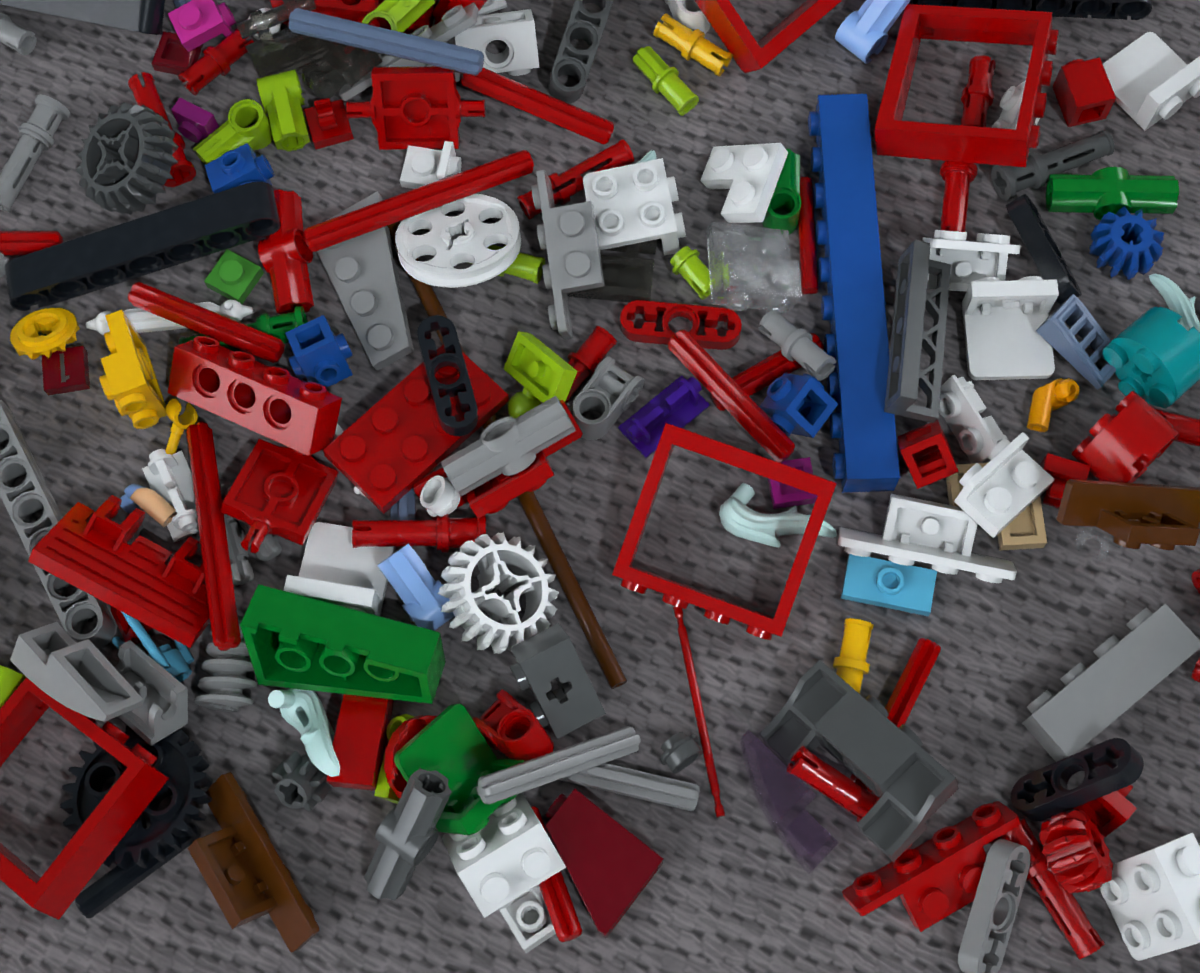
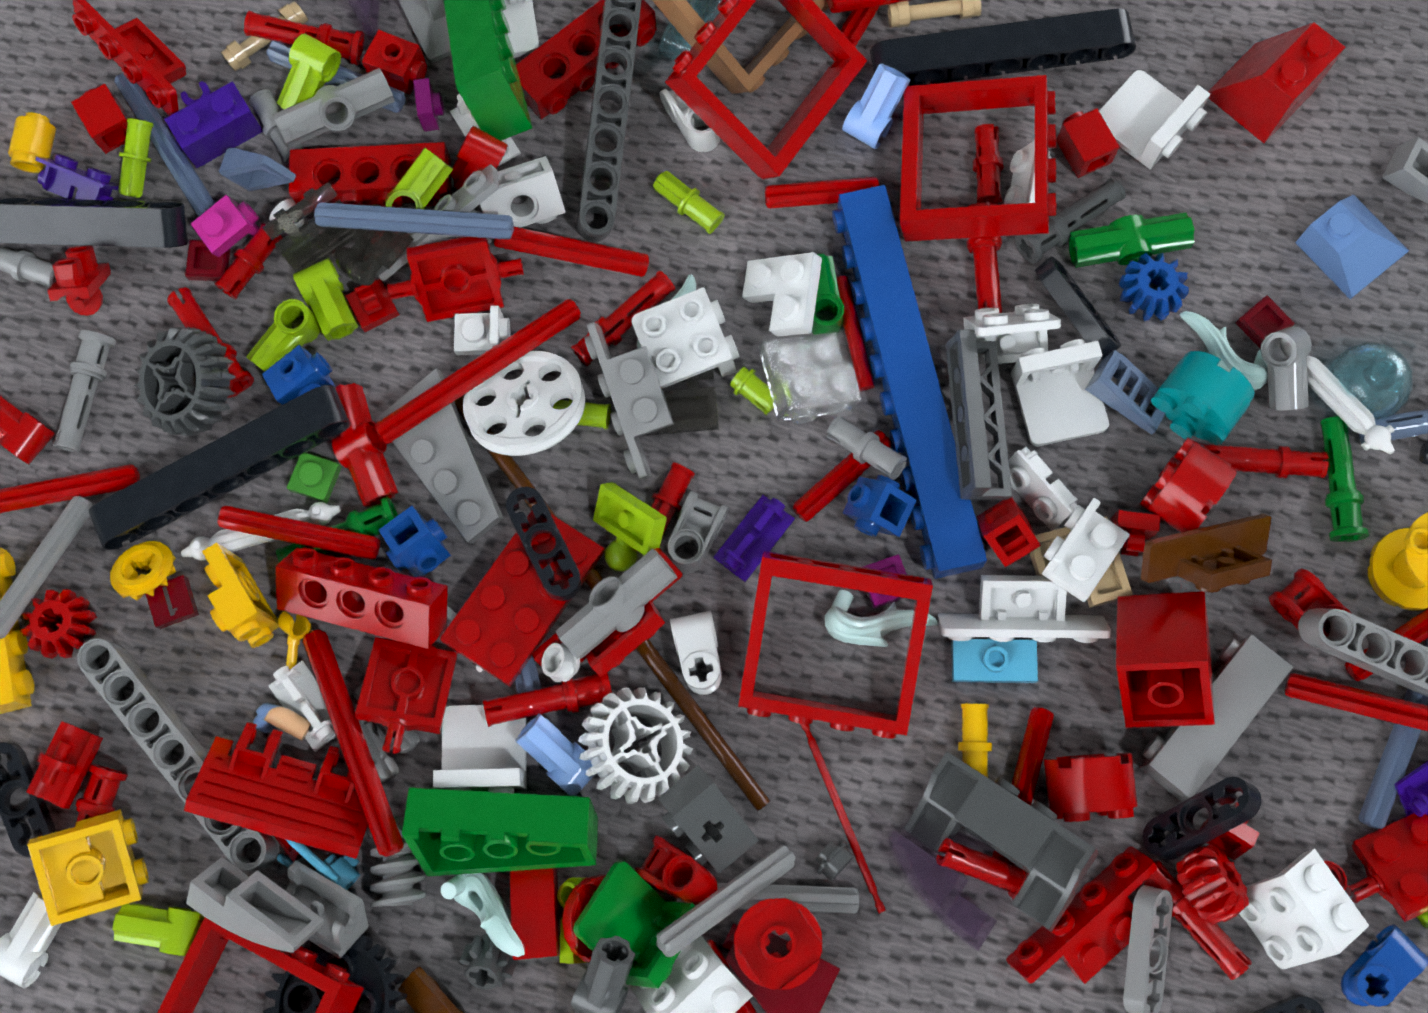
camera: 10 degrees left, 5 degrees up
(49, 45) = (79, 280): none -> red hips
(193, 121) = (241, 329): magenta plate -> none
(578, 805) = (773, 969): none -> red plate
(583, 511) = (697, 645): none -> white piece
(651, 309) = (782, 453): red beam -> none
(692, 44) = (707, 161): yellow pin -> none
(731, 396) = (814, 509): red axle -> none
(790, 93) = (814, 192): none -> red axle
(967, 723) = (1091, 785): none -> red brick
(1050, 398) = (1108, 452): light orange arm -> none
(1067, 611) = (1164, 660): none -> red slope

